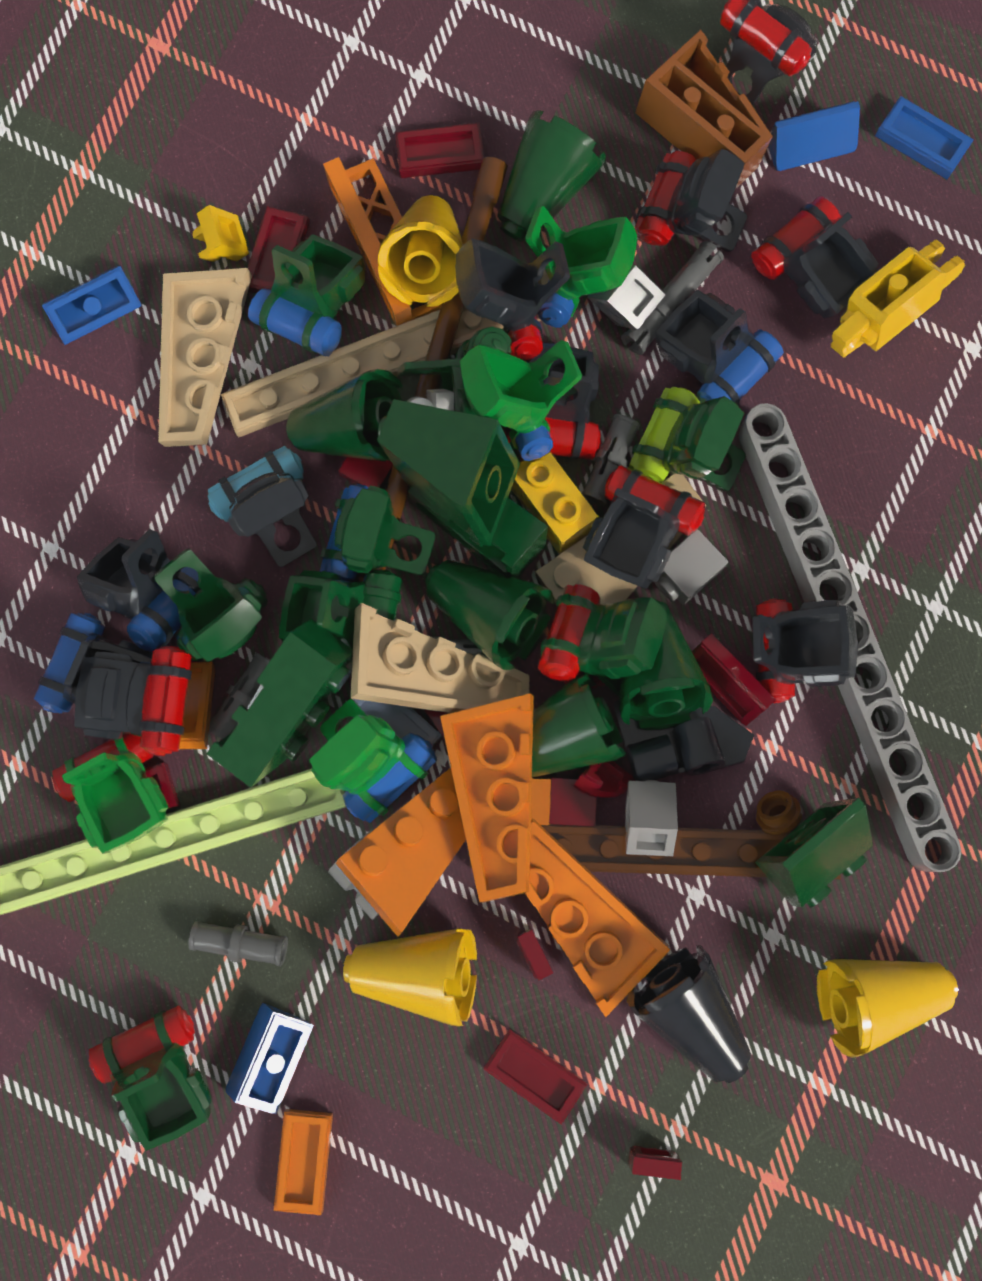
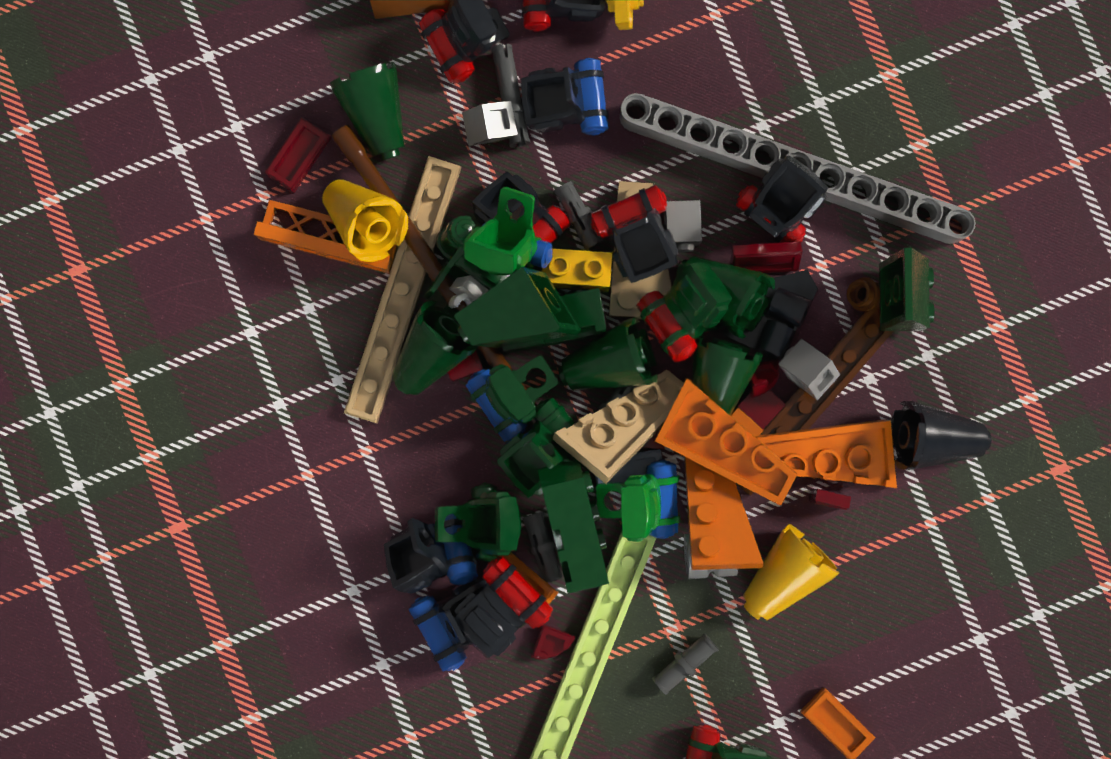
camera: 55 degrees left, 5 degrees up
(91, 304) = (217, 445): blue slope -> none
(112, 793) = (540, 668): green piece -> none
(196, 345) = (300, 401): tan wing -> none
(221, 234) = (243, 331): yellow tile -> none
(262, 496) = (436, 439): black piece -> none
(268, 1059) = (763, 699): blue slope -> none
(276, 228) = (280, 307): dark red tile -> none
(308, 292) = (325, 304): dark green piece -> none
(508, 290) = (436, 194): black piece -> none
(535, 1076) = (896, 554): dark red tile -> none
(596, 258) = (451, 133): green piece -> none
(654, 1162) = (997, 526): dark red tile -> none
(690, 439) = (607, 160): dark green piece -> none
(881, 999) = (1013, 326): yellow cone -> none

